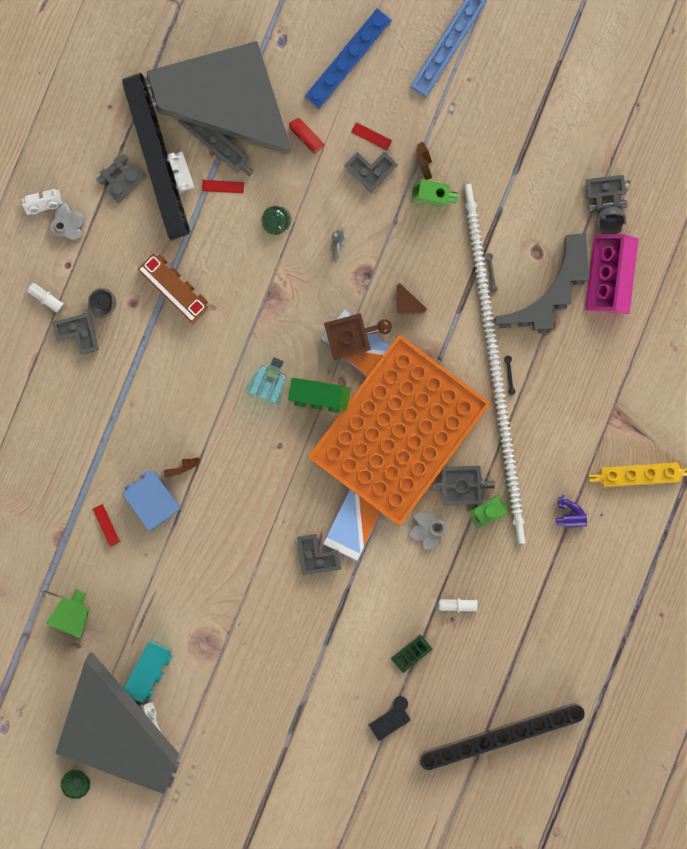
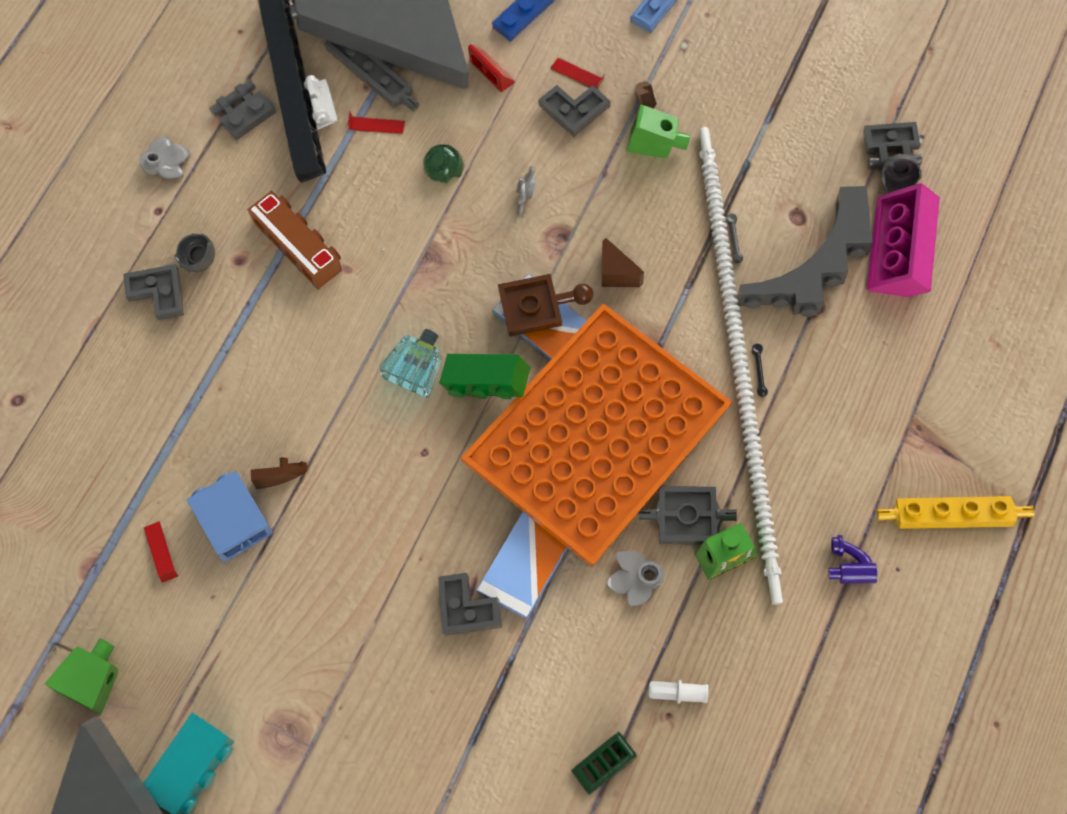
camera: 10 degrees right, 20 degrees down
(34, 204) = (134, 133): white hinge -> none
(45, 297) = (121, 246): white axle -> none

